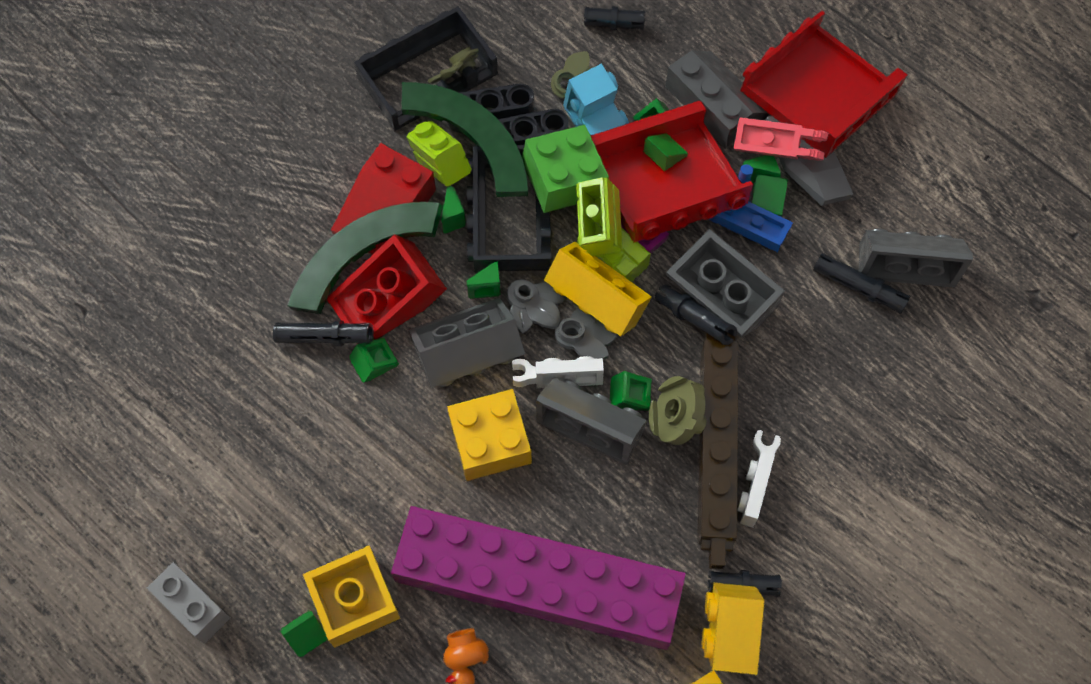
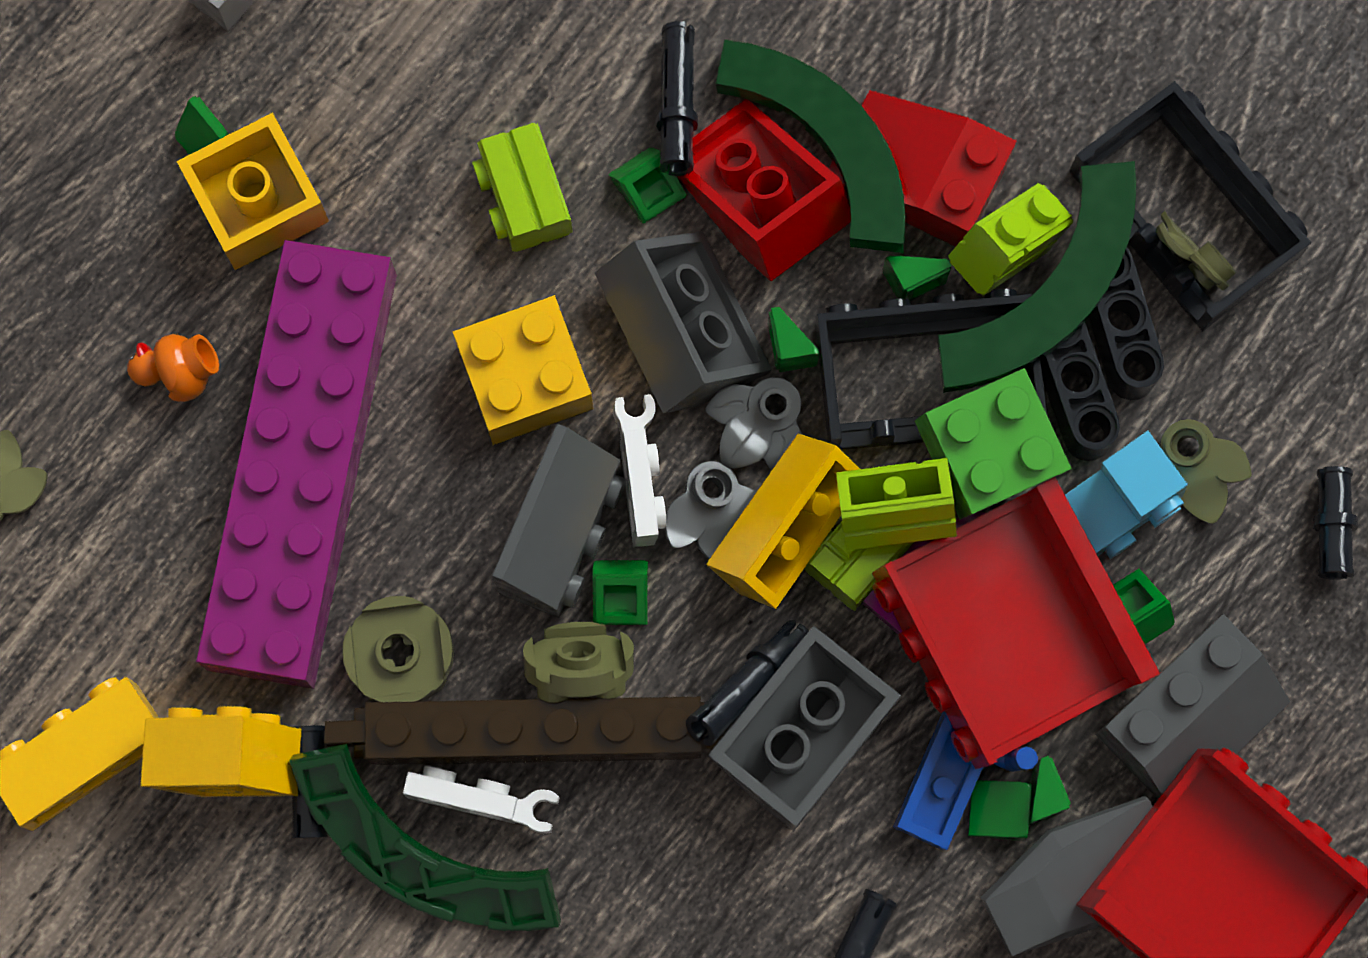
camera: 85 degrees right, 10 degrees up
(368, 429) = (523, 186): none -> lime brick
(664, 150) = (1059, 619): green slope -> none
(676, 510) = (373, 633): none -> olive plate
(777, 139) = (1087, 808): coral hinge -> none
(800, 523) = (408, 868): none -> dark green tile

